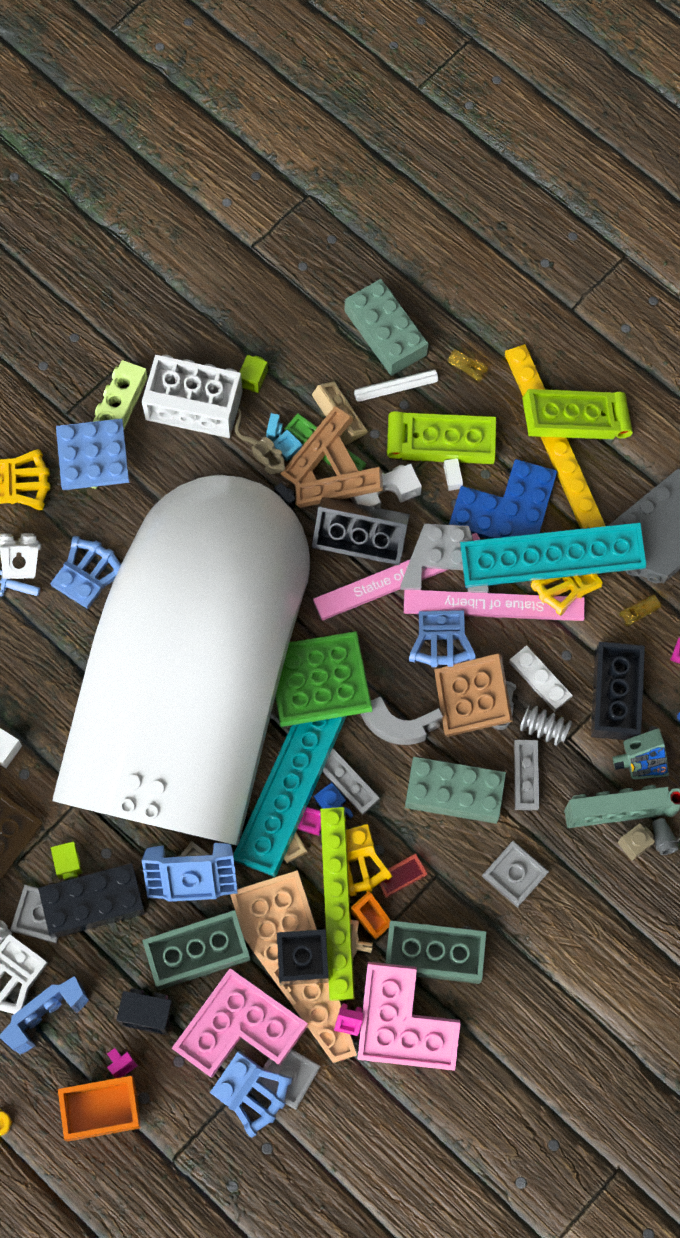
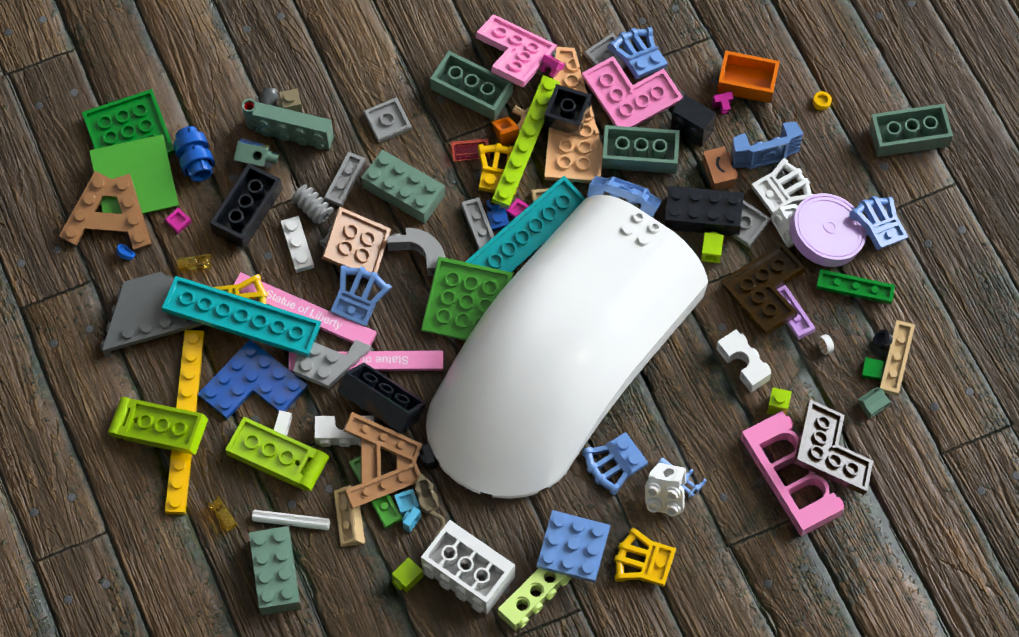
camera: 155 degrees left, 5 degrees down
(93, 967) = (719, 168): none -> nougat brick

